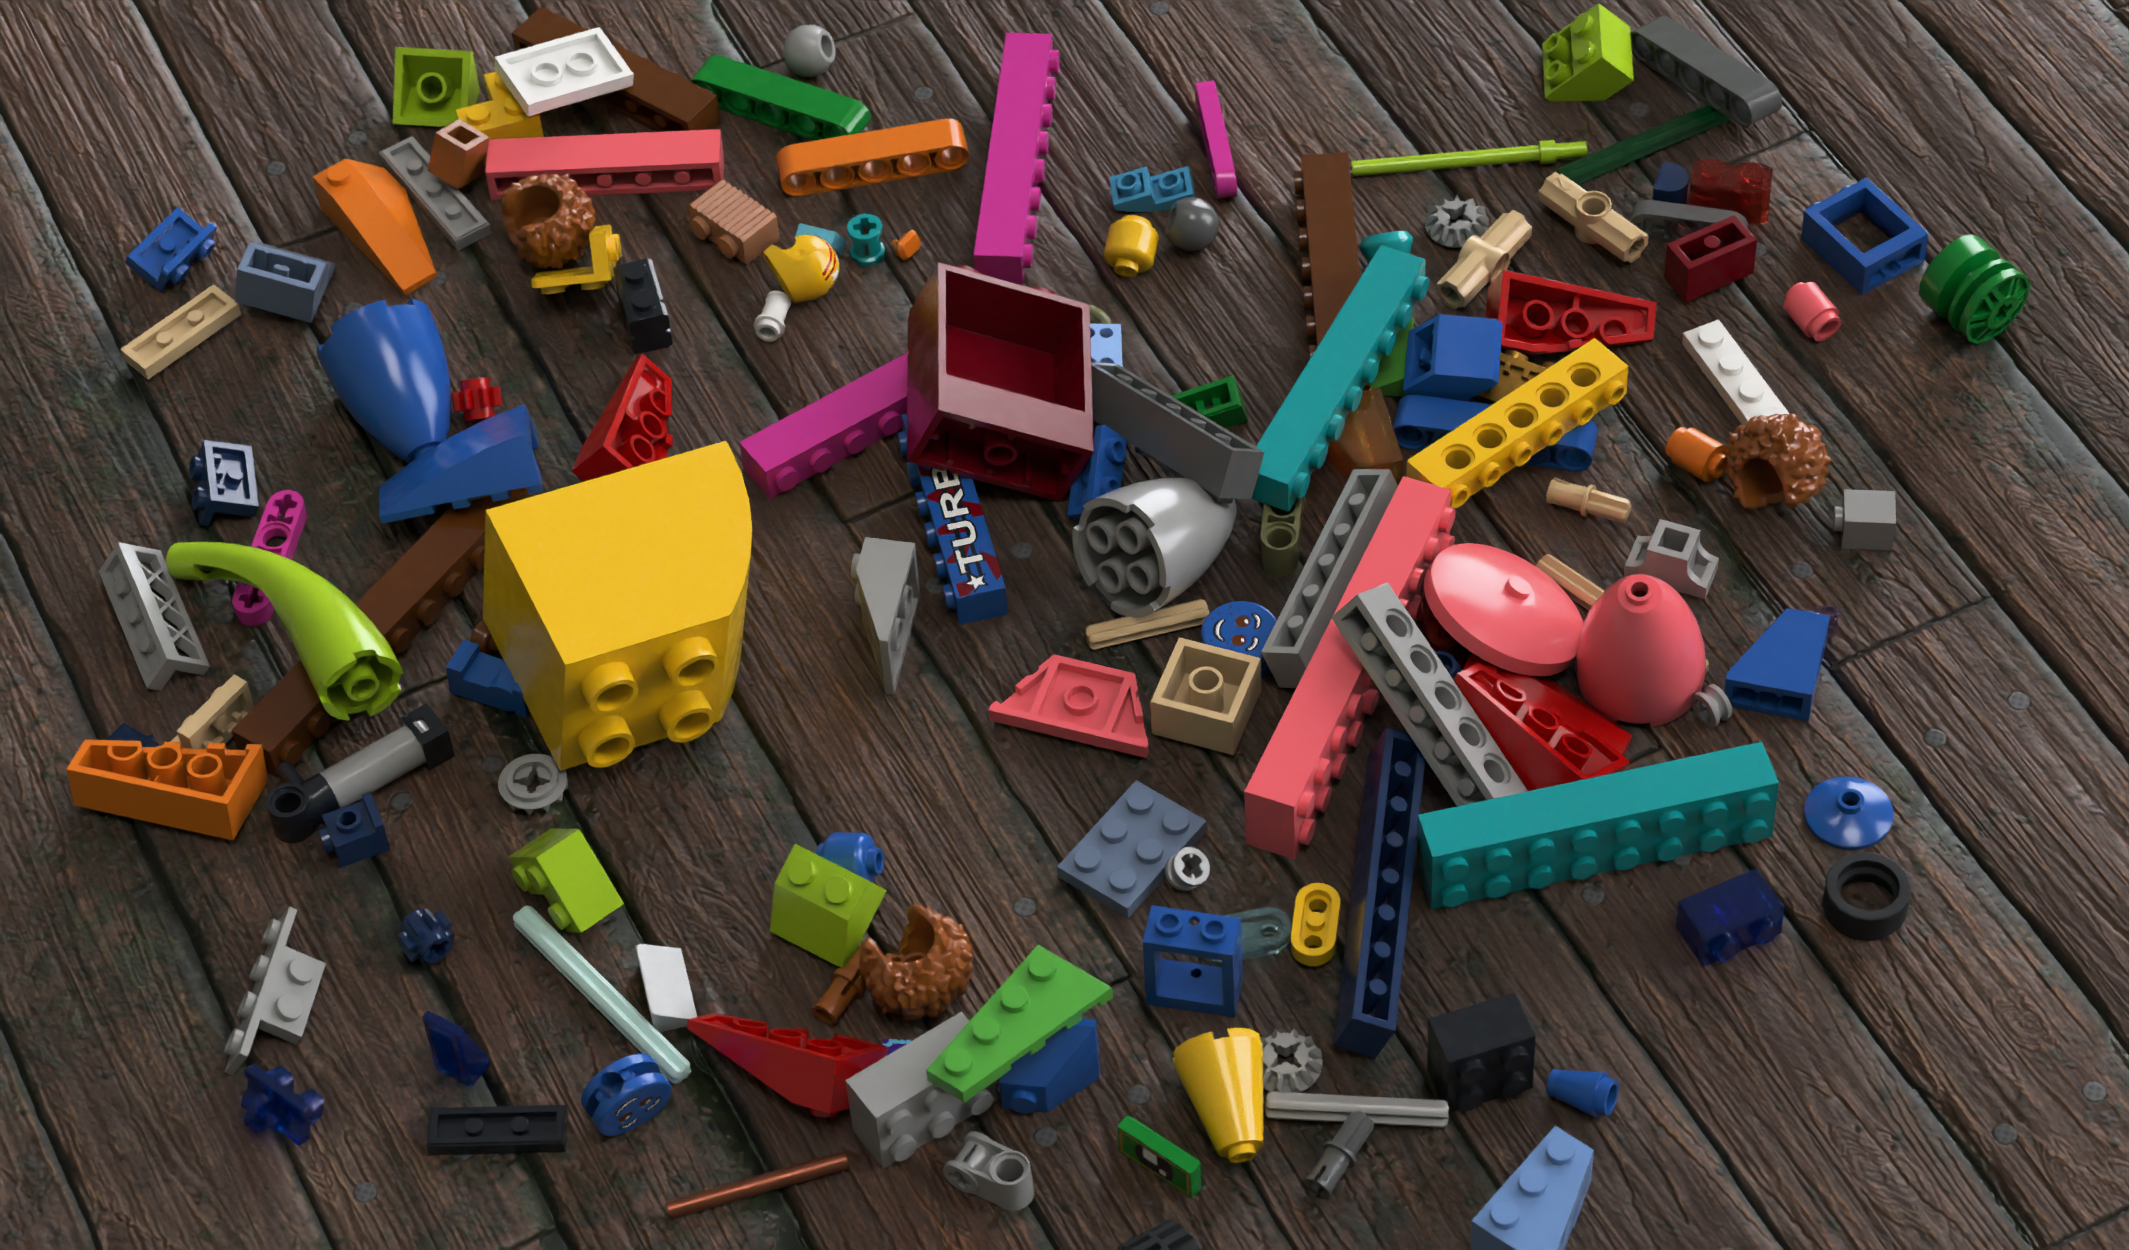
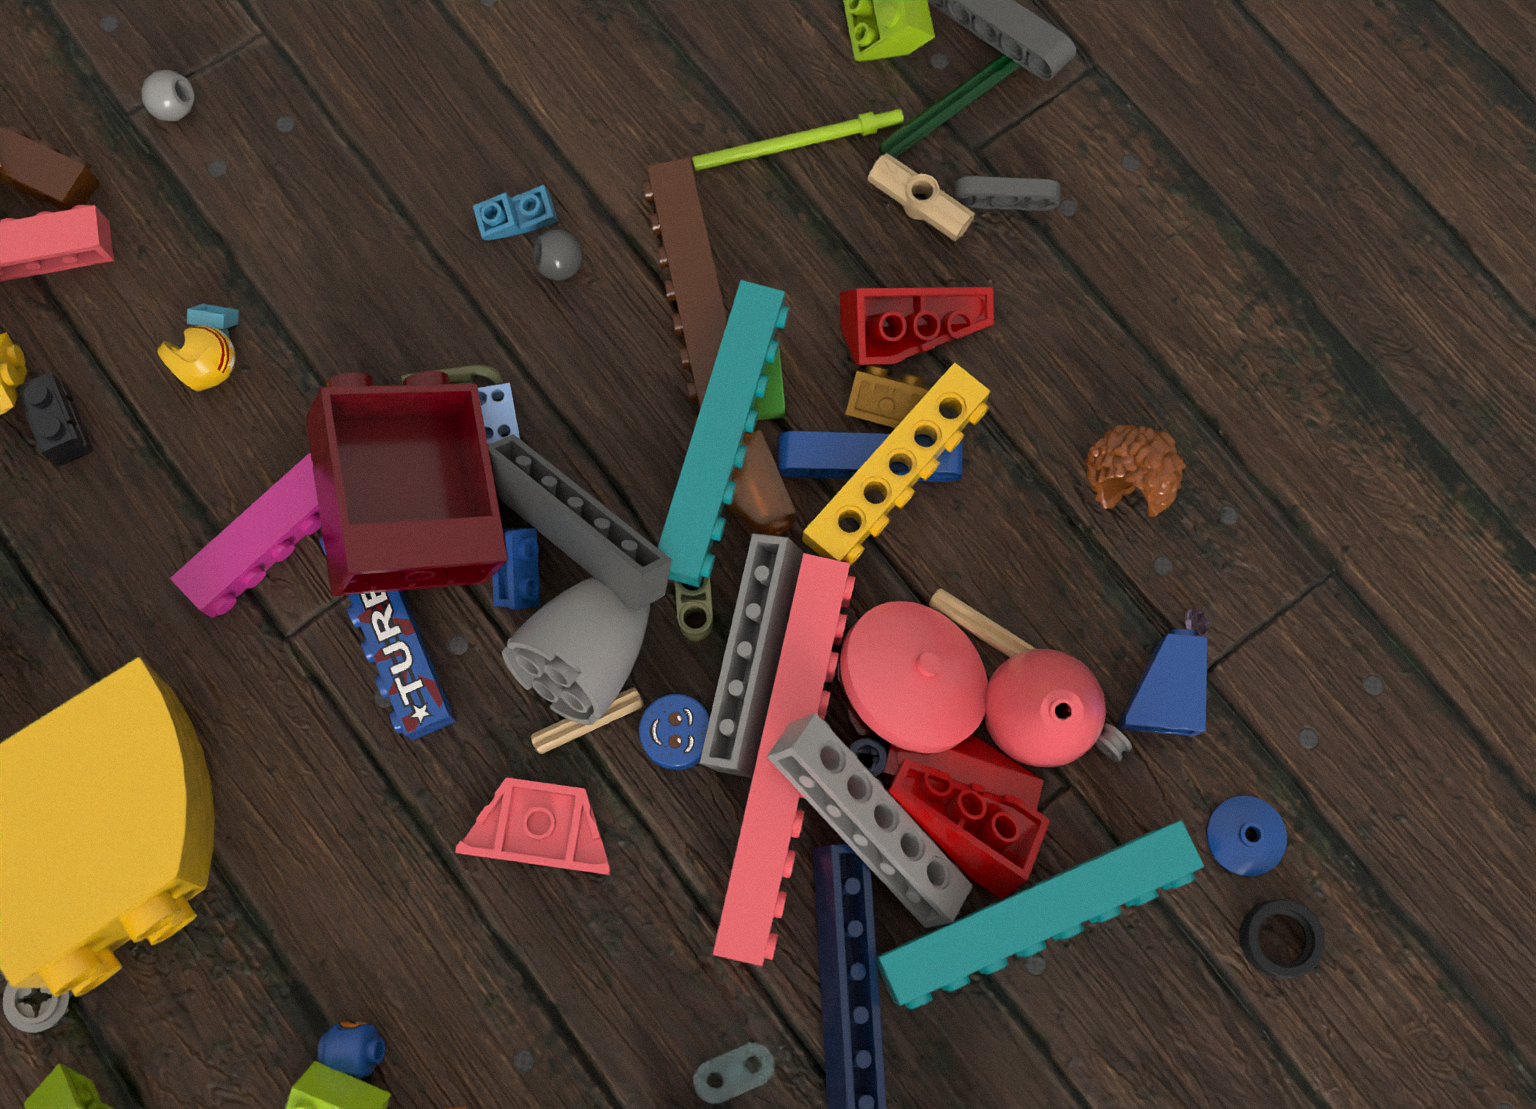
camera: 15 degrees left, 25 degrees up
(631, 426) = (68, 581): red wedge -> none
(733, 222) = (127, 306): nougat brick -> none
(770, 323) = (182, 411): white pin -> none
(780, 100) = (150, 156): green beam -> none
(872, 157) = (247, 211): orange beam -> none
(872, 239) = (254, 311): teal bush -> none
(888, 601) = (338, 748): light grey slope -> none
(907, 245) = (296, 307): orange rock -> none
(1015, 155) = (381, 197): dark pink brick -> none
(1129, 848) = (612, 983): sand blue plate -> none
(1131, 245) = (505, 285): yellow head -> none
(1198, 873) = (663, 1017): light grey bush -> none
(1206, 696) = (654, 810): tan brick -> none
(1215, 139) = (564, 150): dark pink beam -> none
(1215, 394) = (609, 443): green slope -> none
(1314, 927) = (794, 1049): yellow plate -> none
(1396, 240) = (741, 259): teal cone -> none
(1438, 221) = (806, 226): light grey gear -> none
(1453, 357) = (823, 387): blue slope -> none
(1483, 259) = (830, 257): tan piece -> none
(1588, 500) = (965, 521): tan axle -> none
(1671, 184) = (986, 155): dark blue brick -> none
(1675, 558) = (1052, 585): light grey brick -> none
(1697, 453) = (1056, 455): orange brick -> none
(1710, 258) = (1035, 234): dark red brick -> none
(1730, 917) = (1167, 986): clear blue brick -> none
(1731, 372) = (1079, 366): white plate -> none
(1732, 187) = (1040, 152): clear red brick -> none
(1812, 311) = (1131, 277): coral brick -> none
(1866, 519) = (1217, 510): light grey brick -> none
(1879, 264) = (1144, 206): blue window -> none
(1974, 288) = (1277, 242): green wheel -> none

